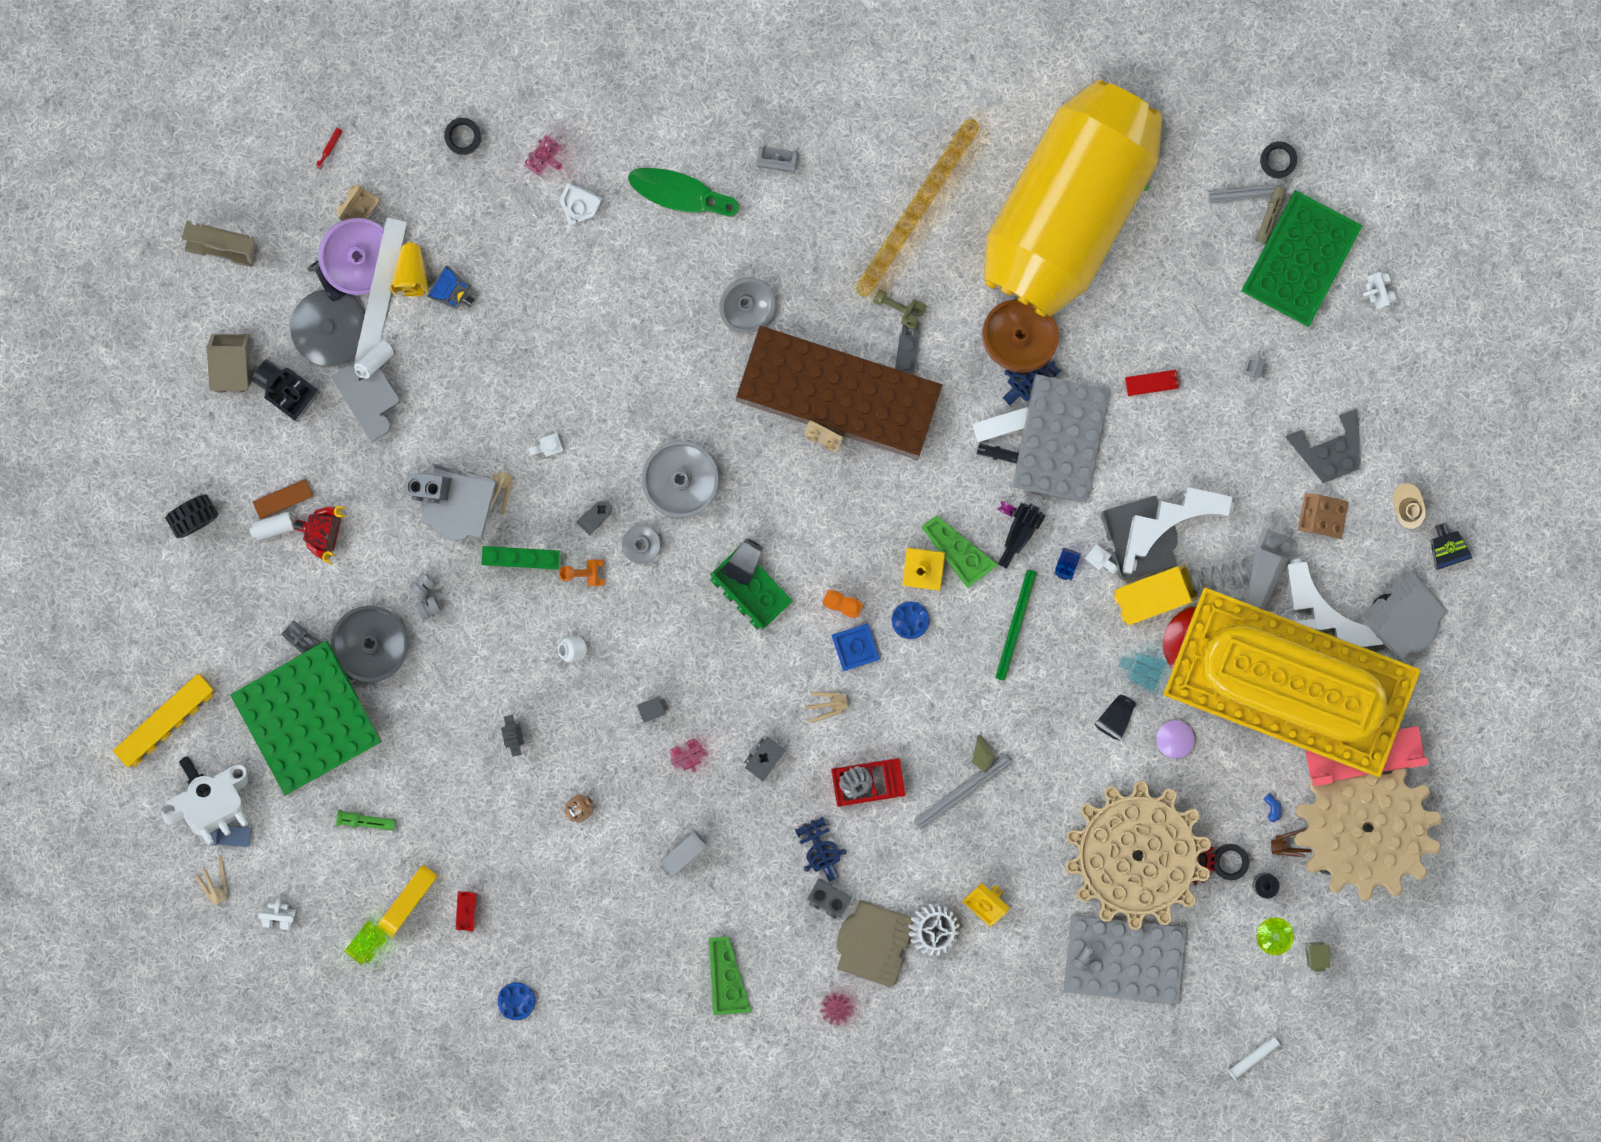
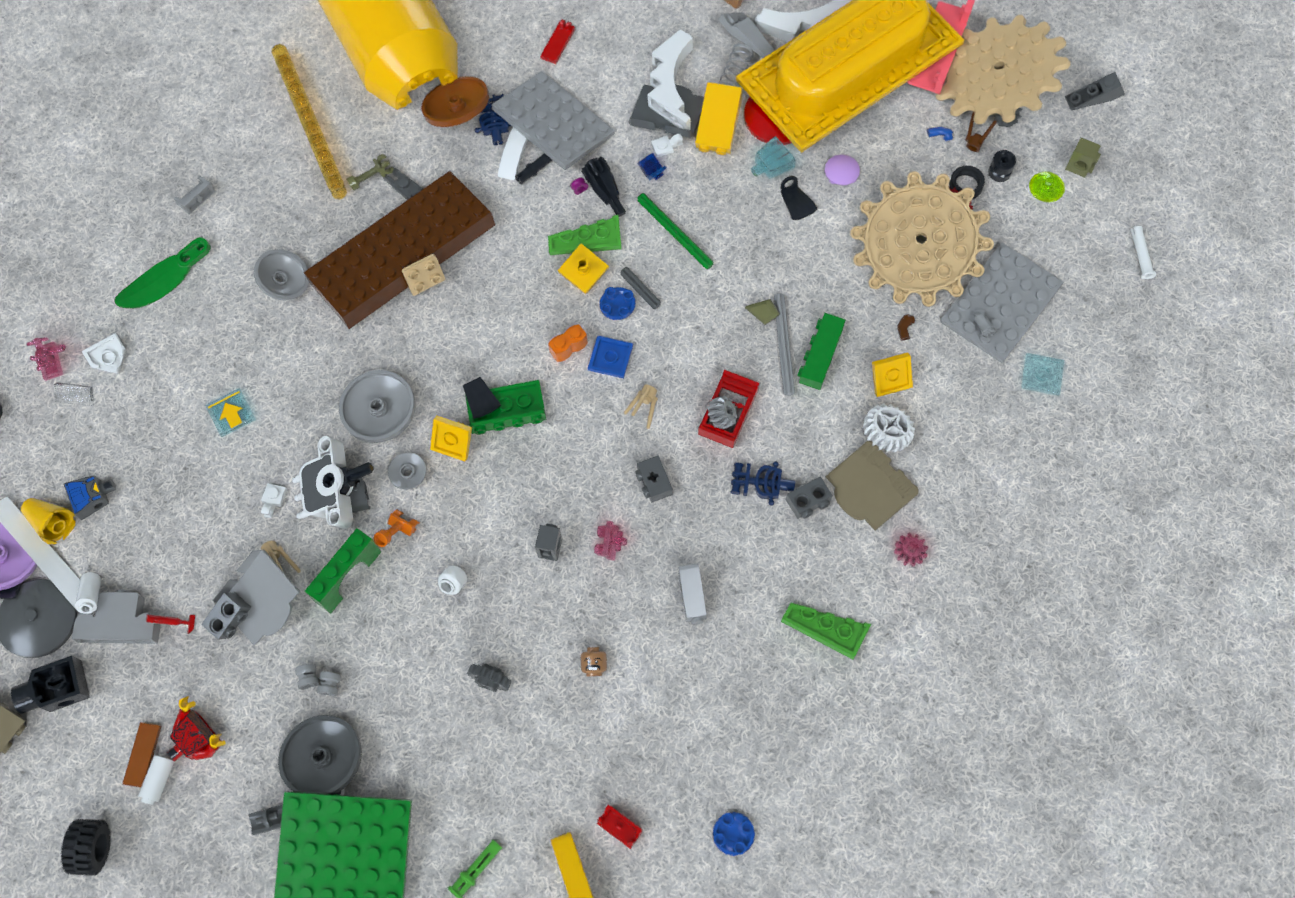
camera: 50 degrees left, 20 degrees down
(396, 444) = (171, 621): none -> red piece
(584, 491) = (327, 484): none -> piece
(597, 352) = (230, 412): none -> clear light blue tile
(692, 563) = (450, 438): none -> yellow tile
(938, 630) = (640, 288): none -> dark grey axle
(974, 830) = (822, 351): none -> green brick
(1046, 885) = (903, 325): none -> reddish brown arm
(1073, 1032) = (1042, 374): none -> clear light blue tile
(1405, 929) = (1096, 93): none -> dark grey slope

